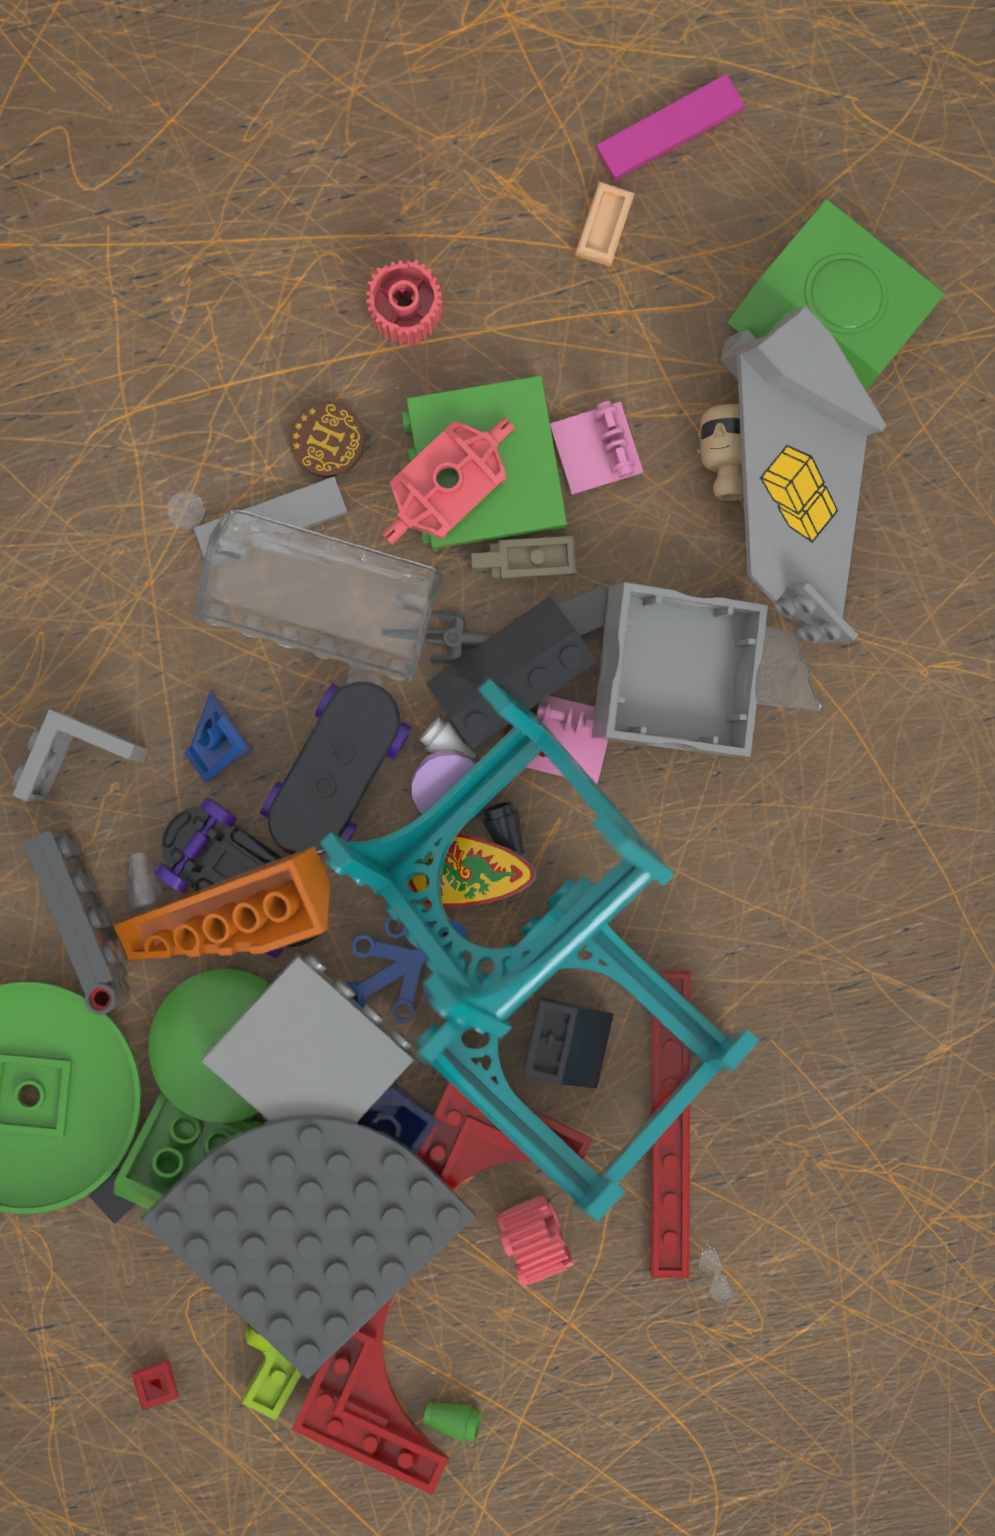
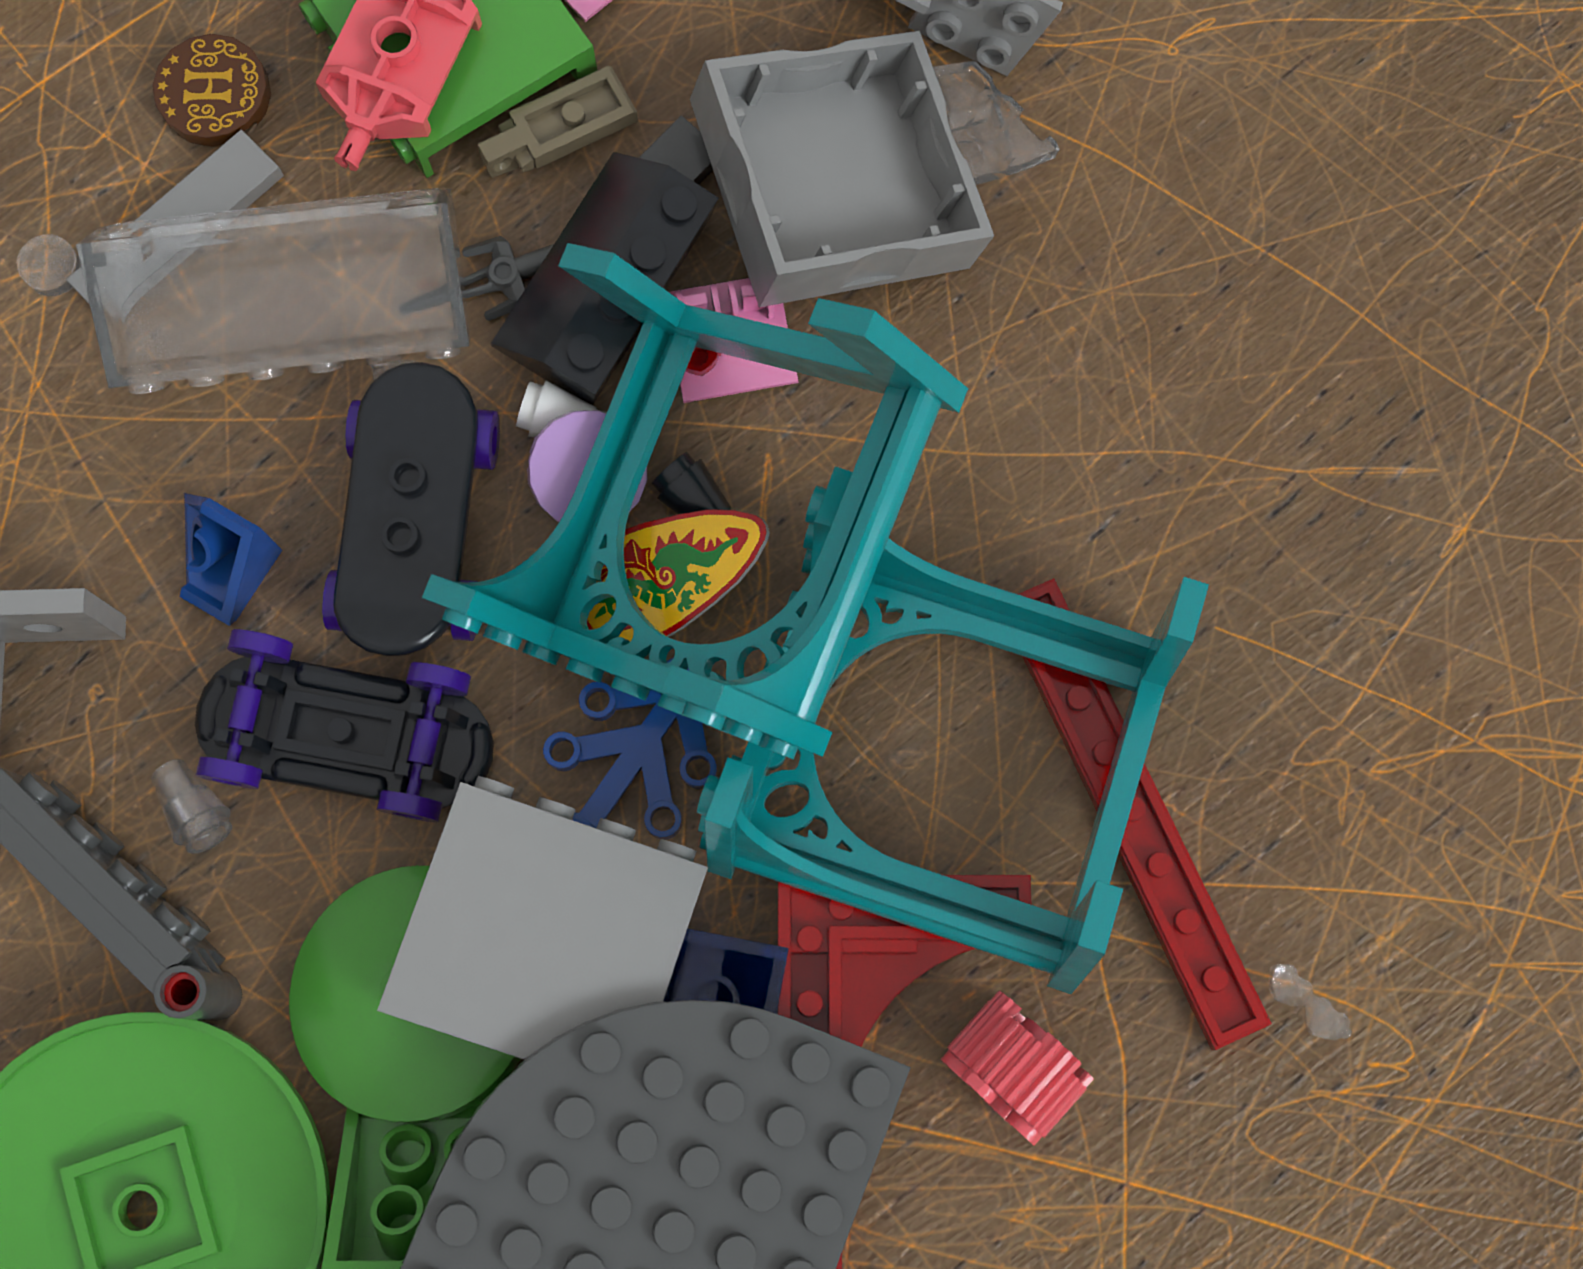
camera: 30 degrees left, 10 degrees down
(239, 914) = (344, 774): orange wedge -> none
(567, 1043) = (925, 754): black slope -> none

